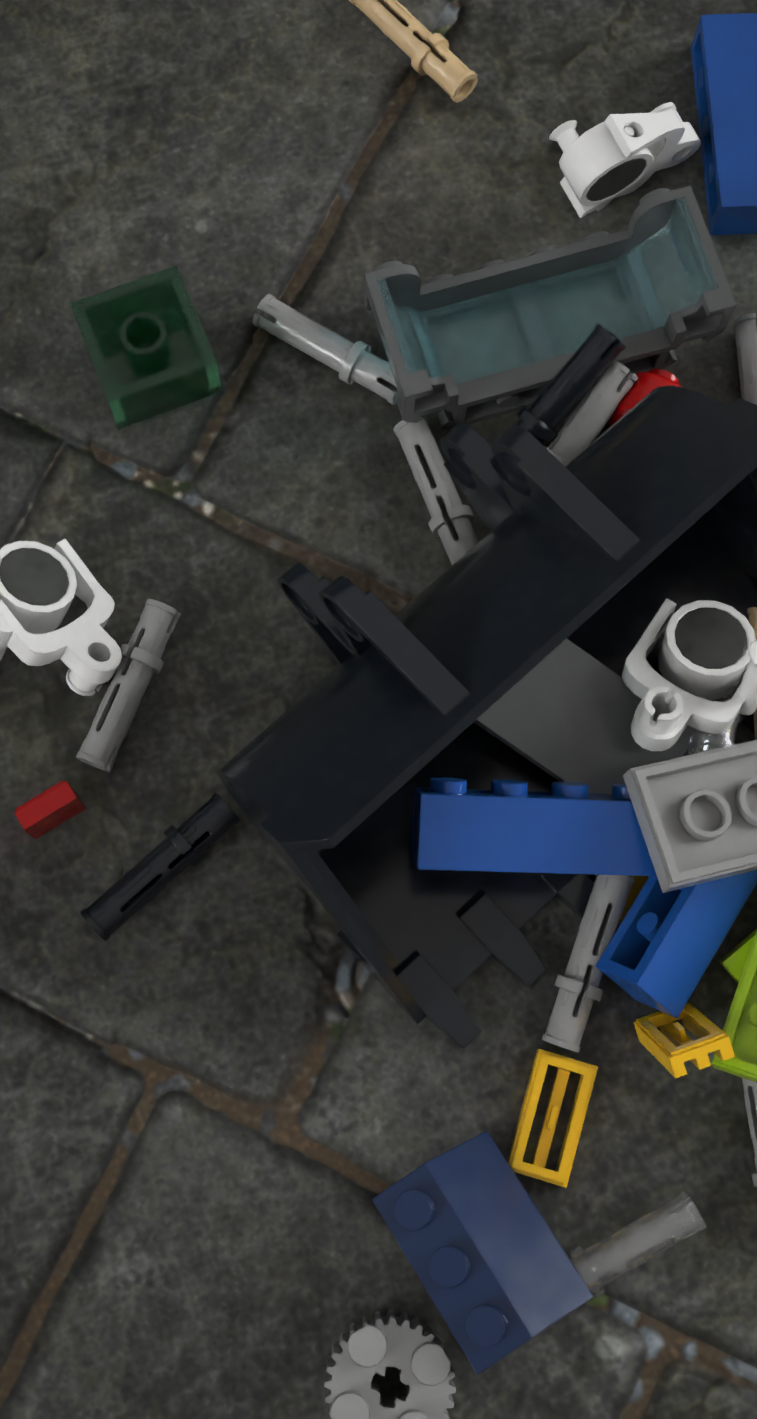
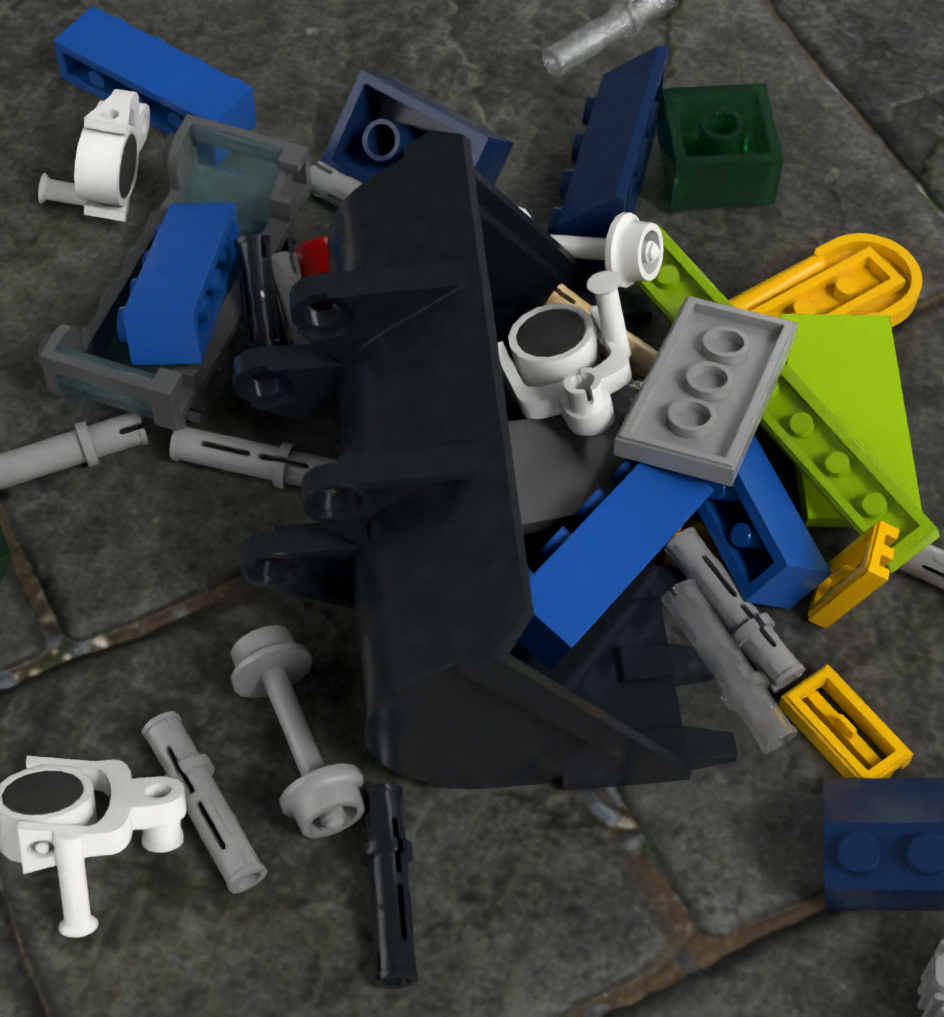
camera: 50 degrees left, 20 degrees down
(49, 809) = (259, 940): red tile -> none
(266, 645) = (324, 796): none -> light grey piece
(528, 999) = (741, 685): none -> clear pin
(529, 316) = (181, 285): none -> blue brick

